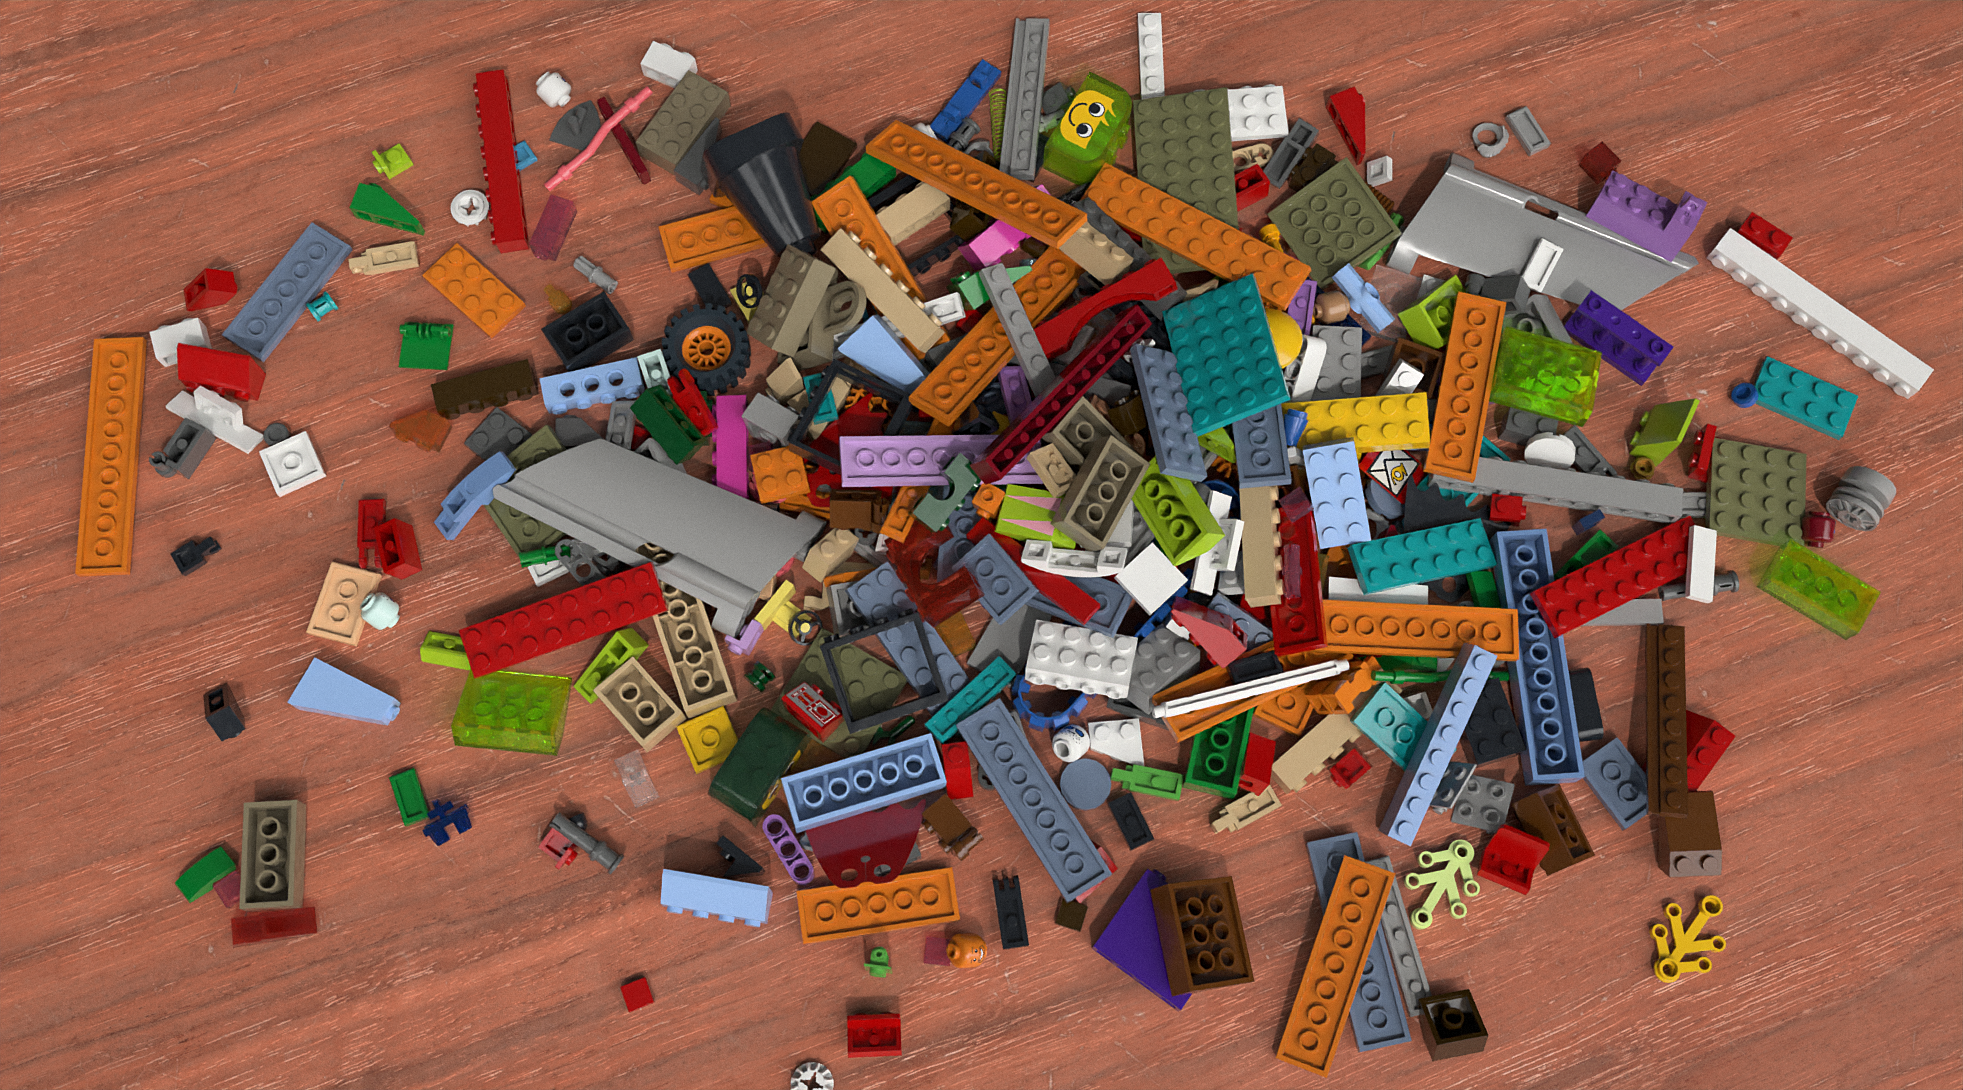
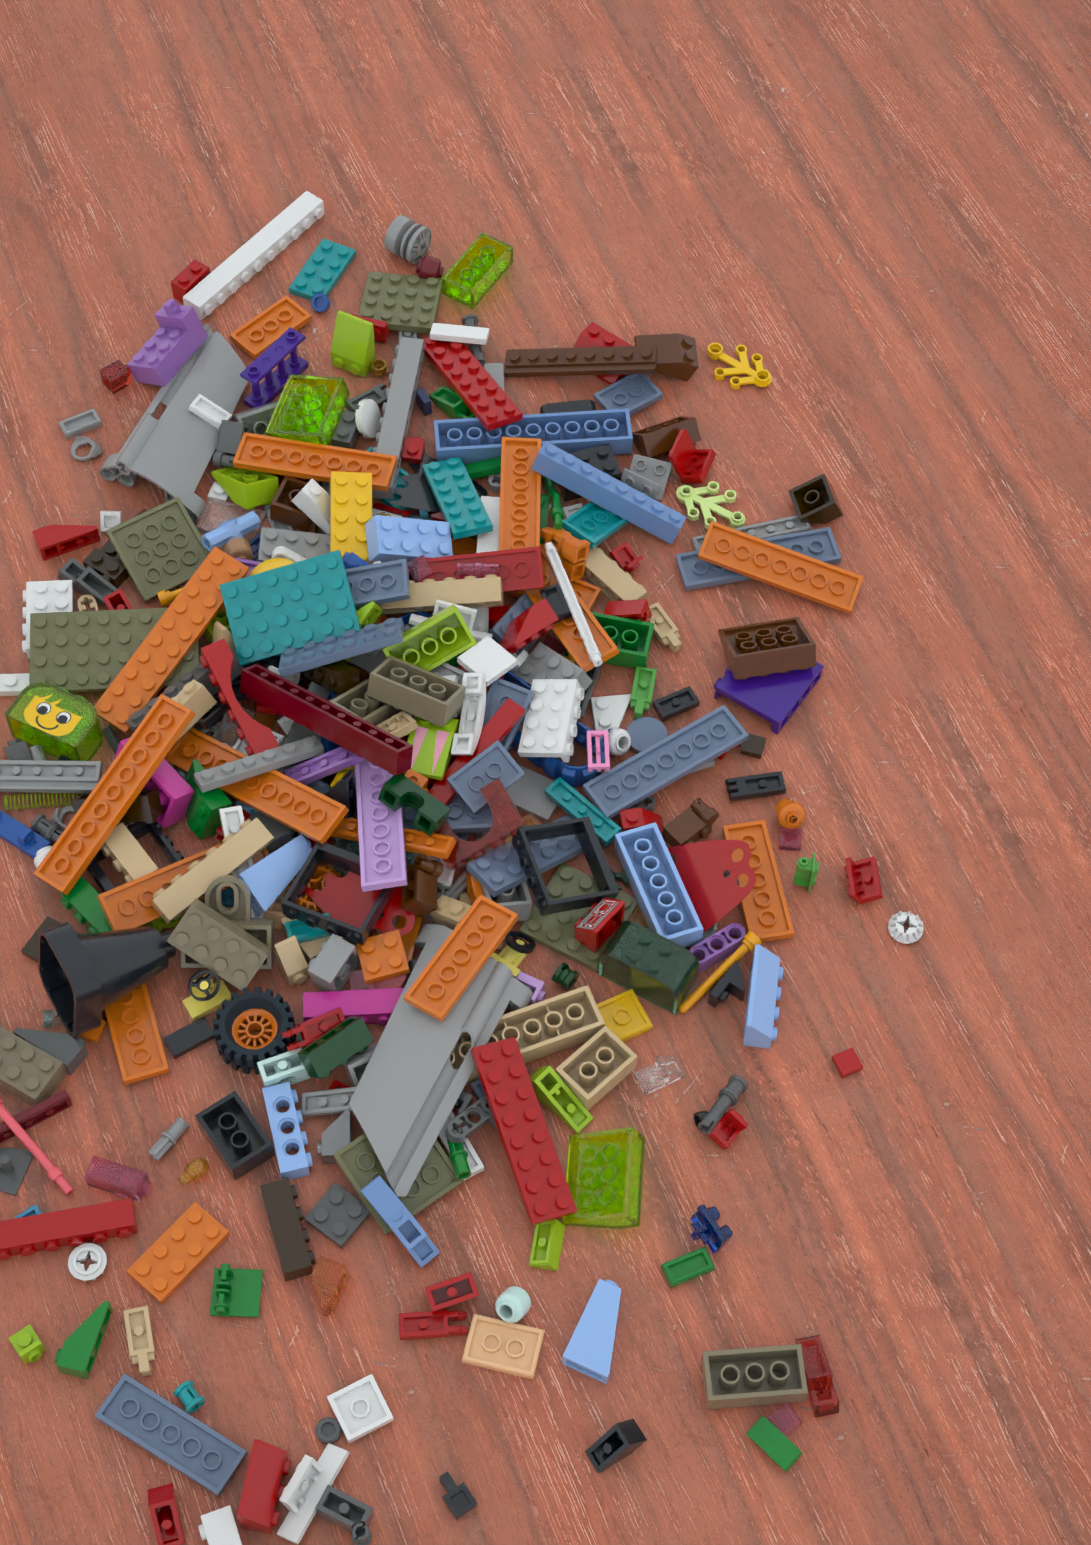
camera: 90 degrees left, 15 degrees down
(758, 550) = (460, 958): none -> orange plate
(787, 887) = (748, 944): none -> light orange piece
(1040, 704) = (598, 765): none -> bright pink tile
(1697, 337) = (269, 325): none -> orange plate

